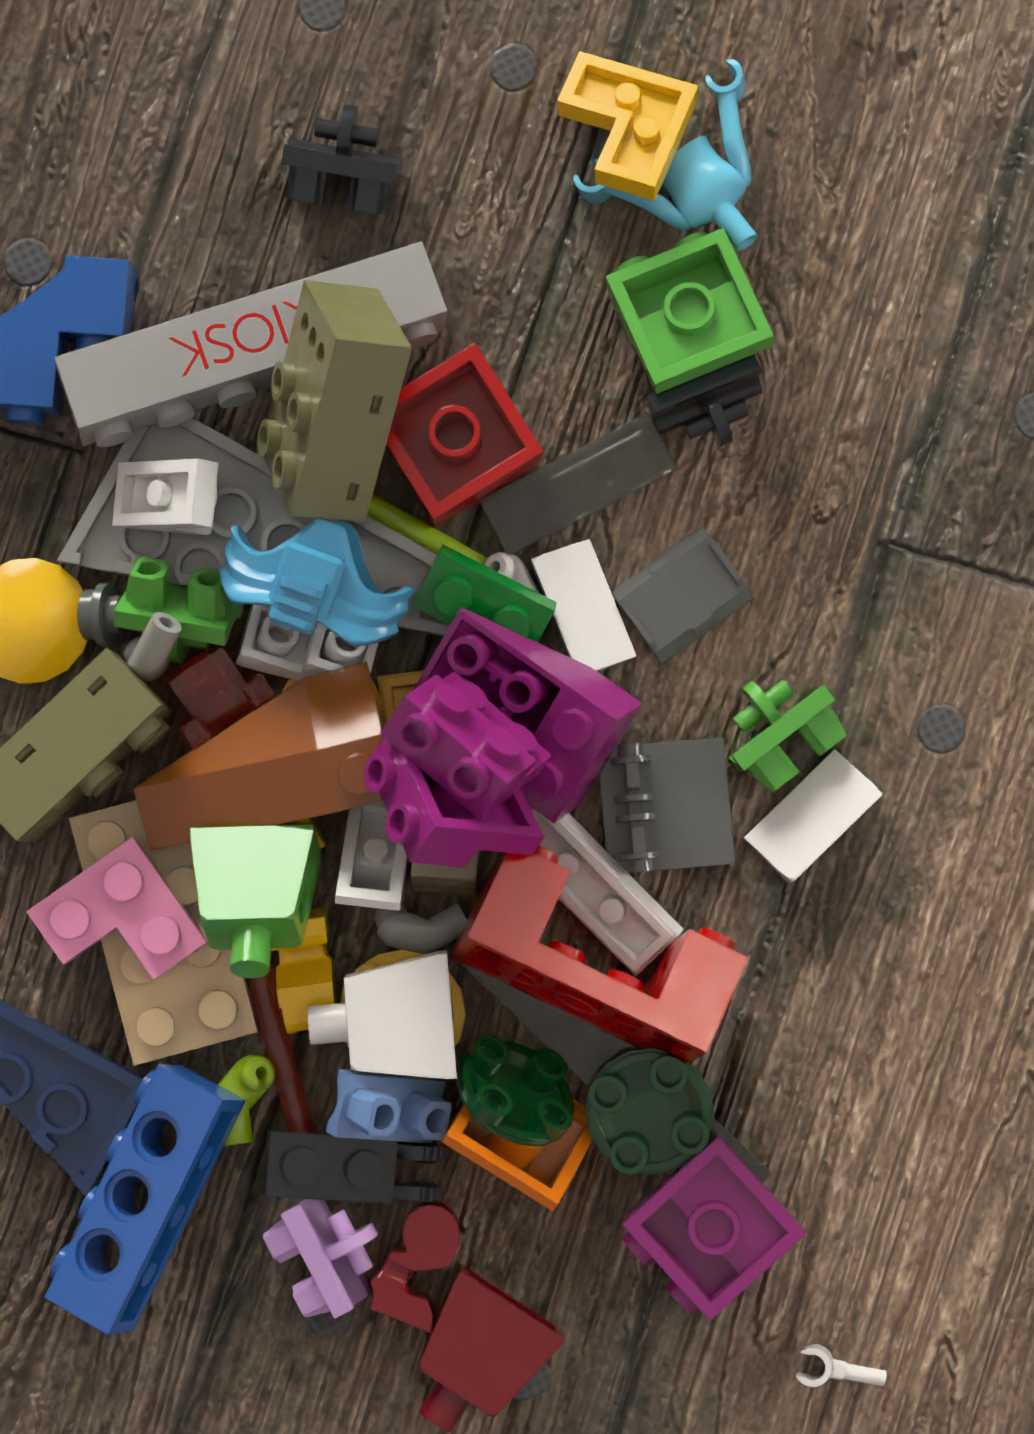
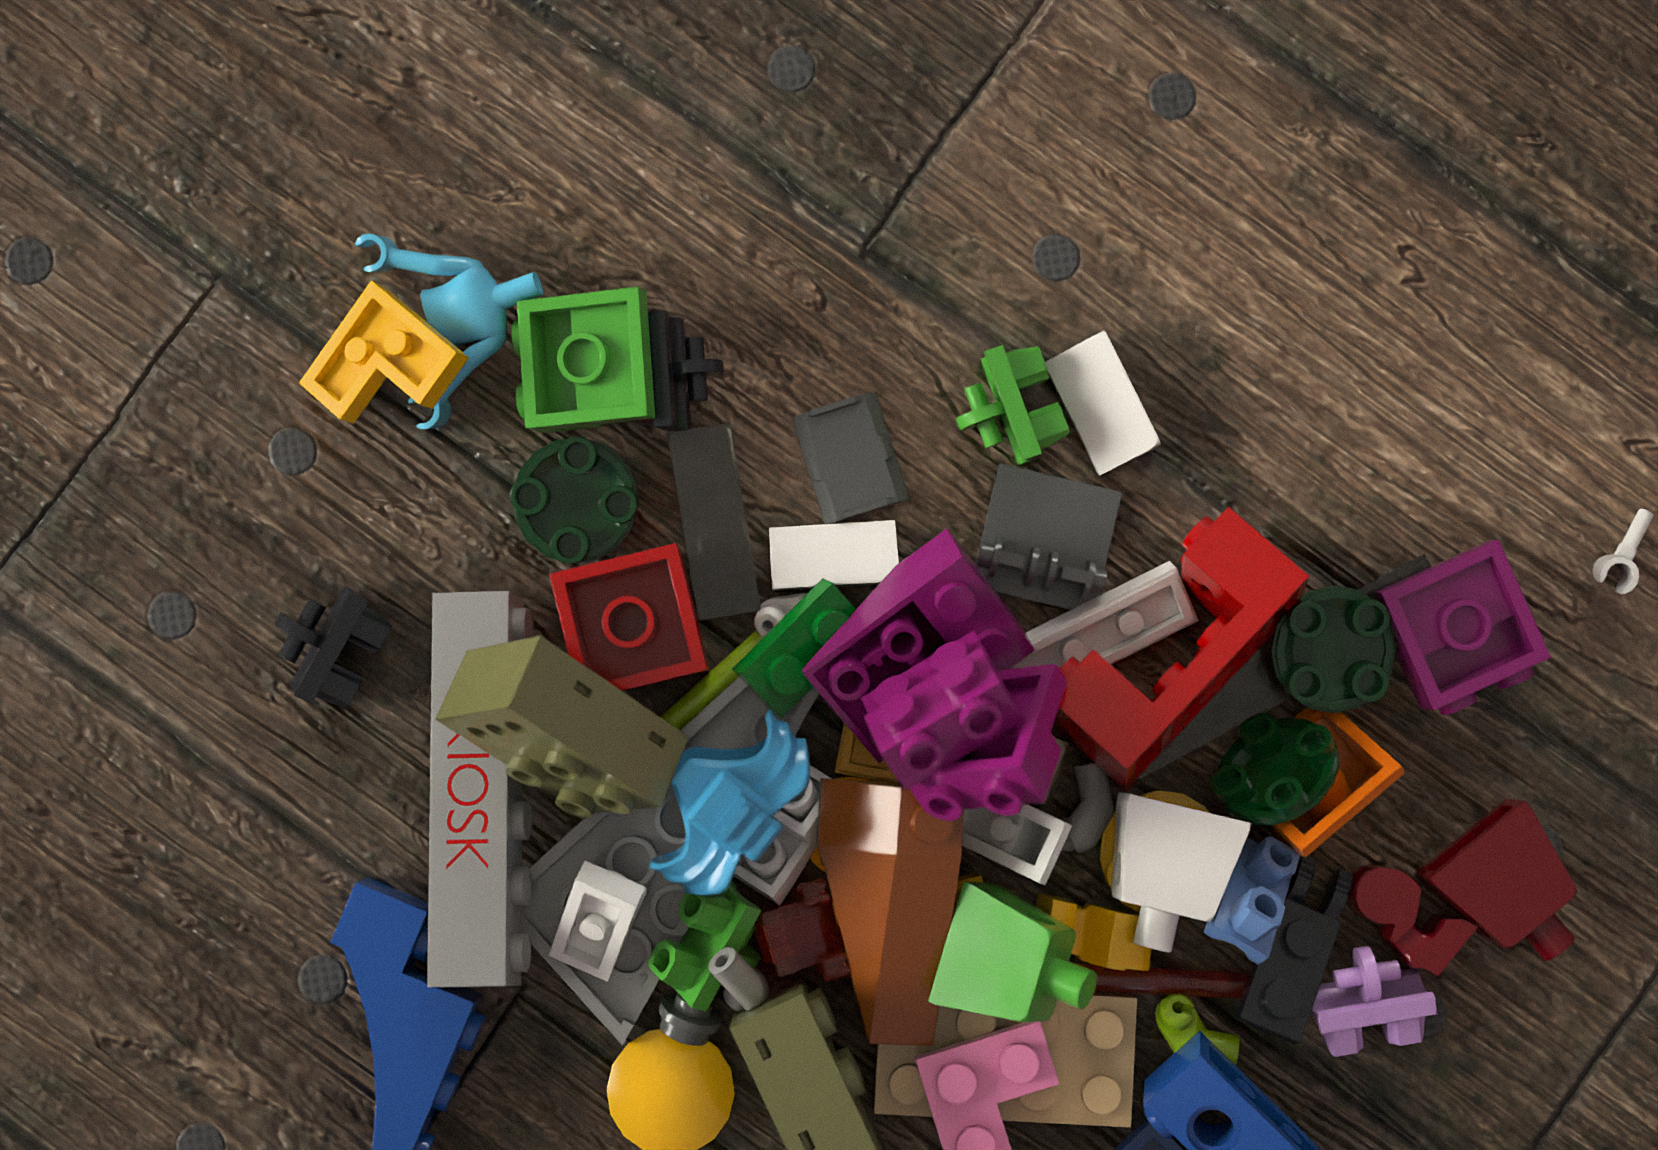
camera: 75 degrees left, 0 degrees up
(554, 346) = (575, 500): none -> dark green dish

